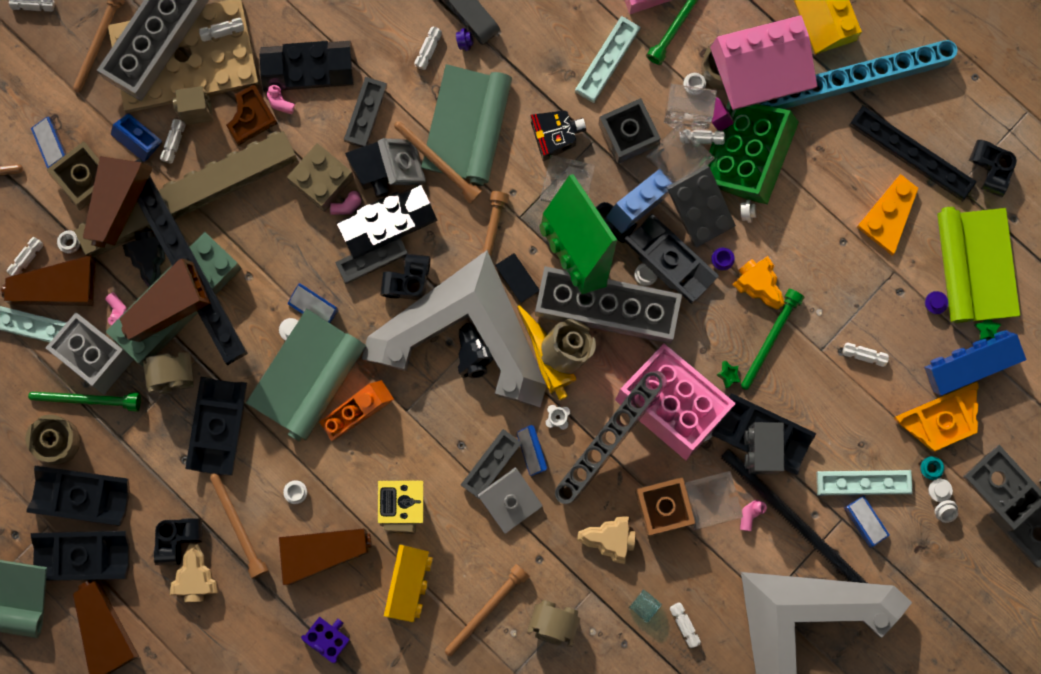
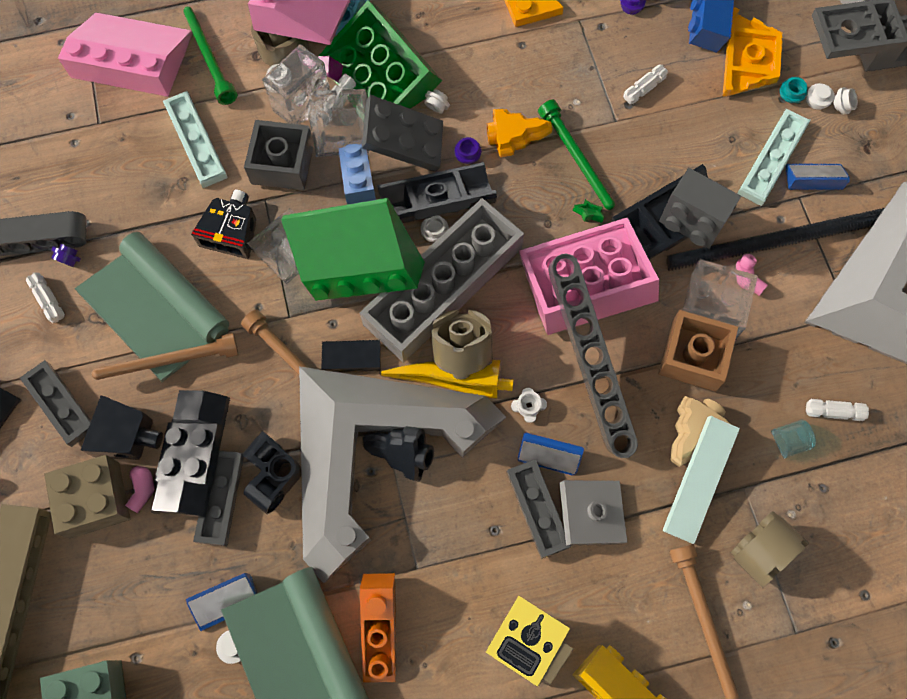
camera: 55 degrees left, 10 degrees down
(401, 162) = (137, 395): light grey plate -> none
(575, 557) = (701, 479): none -> light aqua tile

